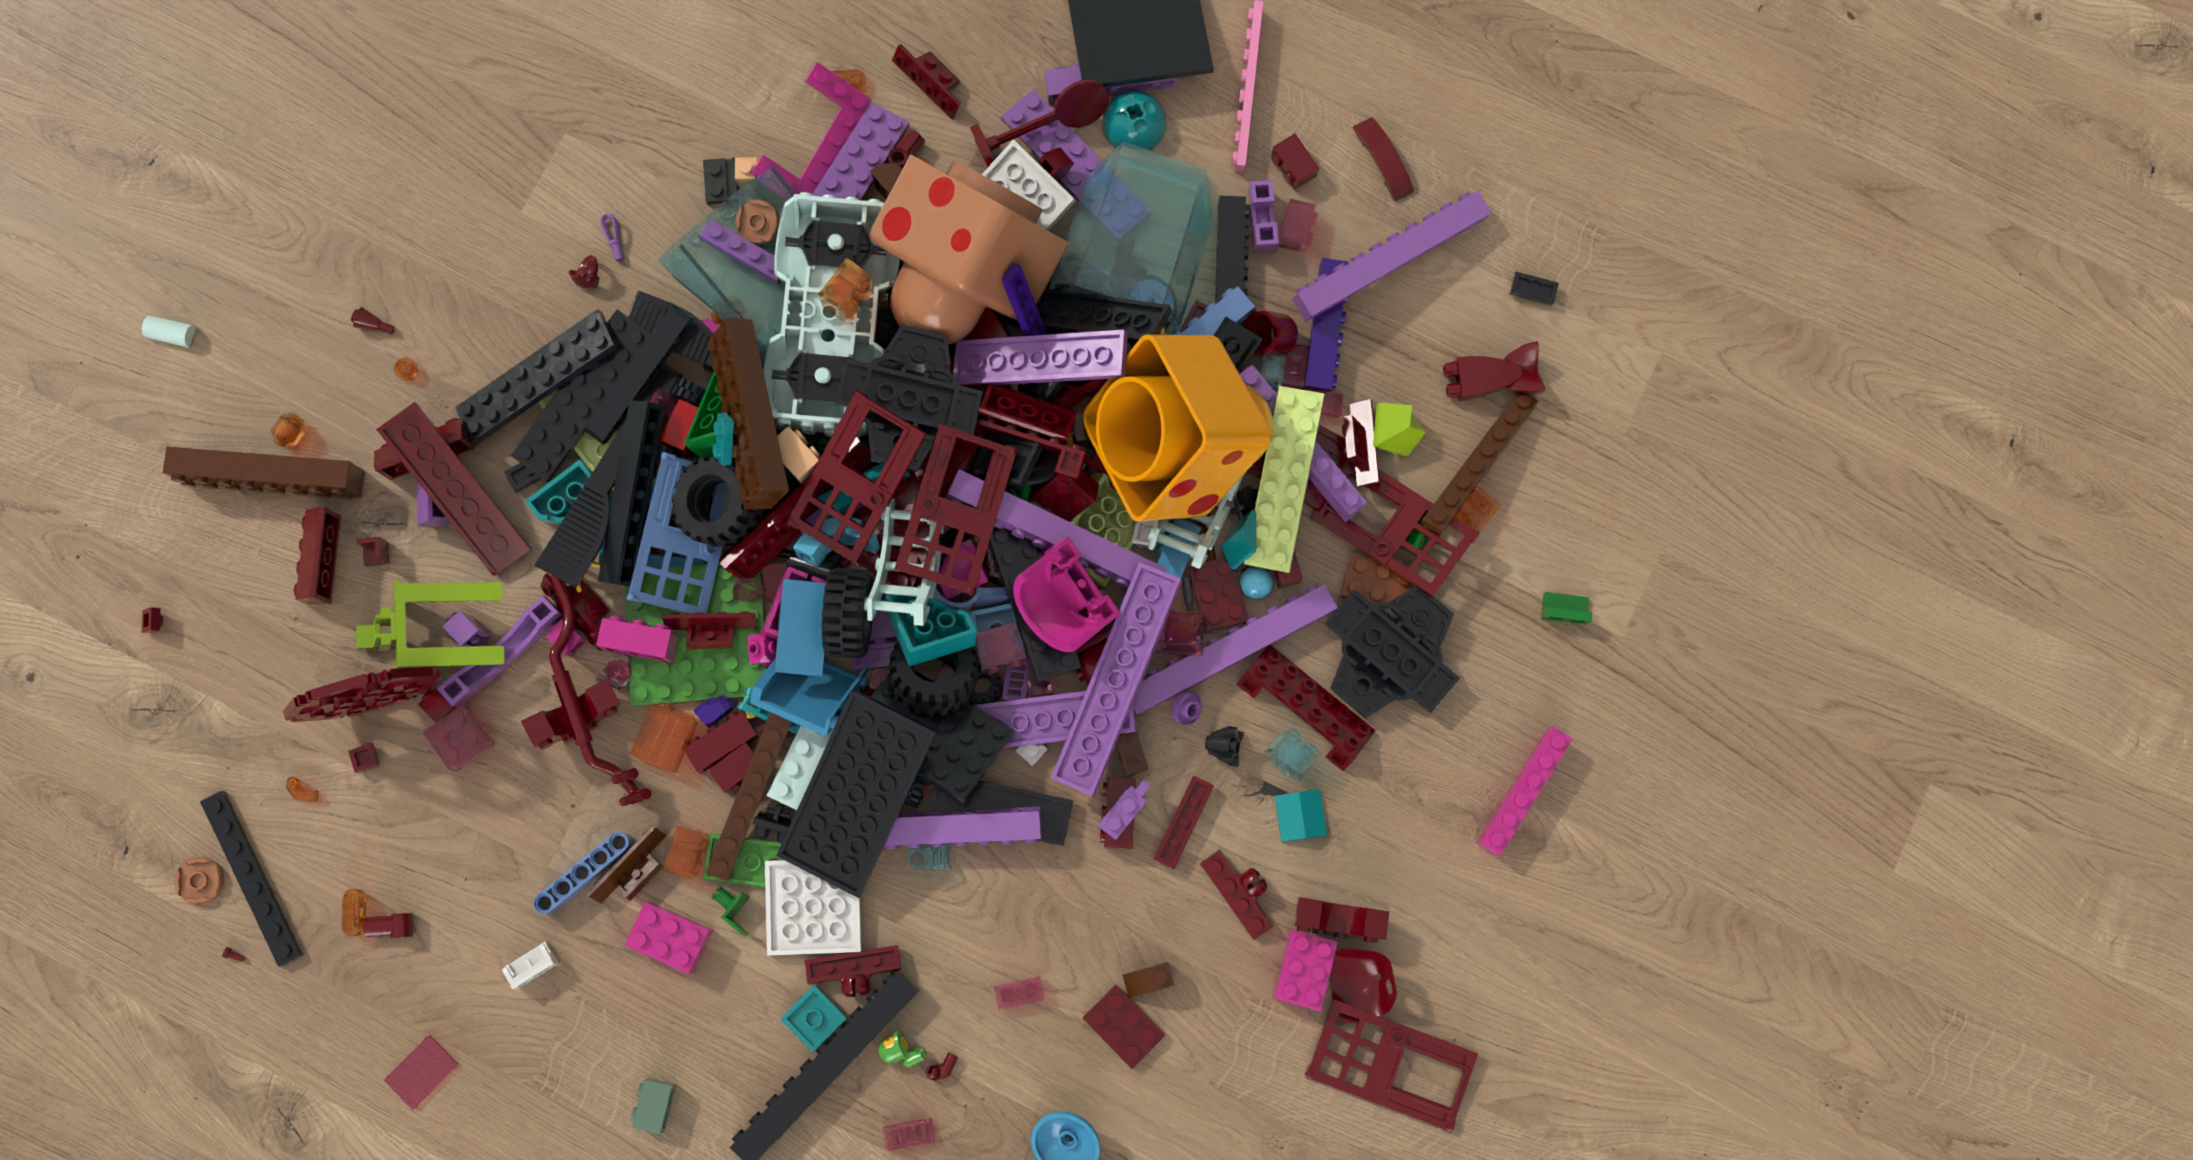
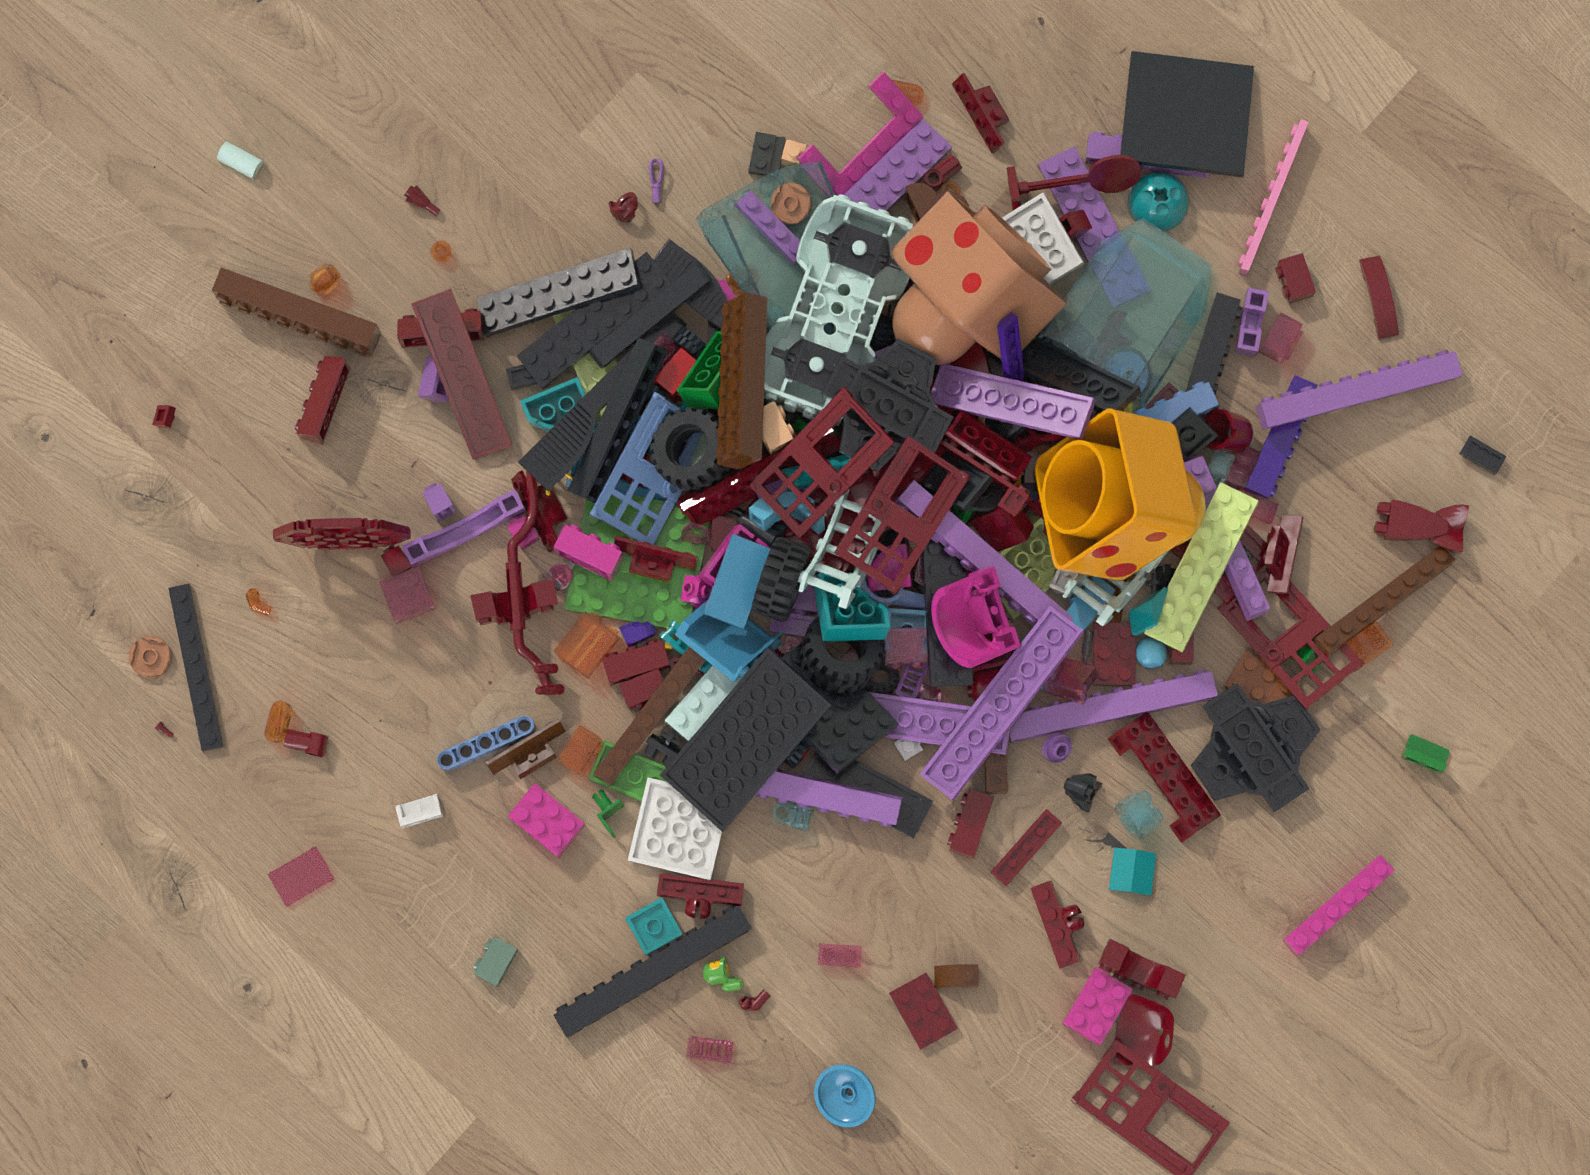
camera: 20 degrees right, 0 degrees up
(364, 758) = (319, 589): dark red plate -> none
(370, 637) = (391, 458): lime piece -> none
(374, 551) = (373, 408): dark red panel -> none
(724, 439) = (717, 392): teal plate -> none
(846, 290) = (857, 295): clear orange brick -> none
(1124, 810) = (976, 821): medium lavender hinge -> none
(1396, 429) = (1317, 549): lime slope -> none

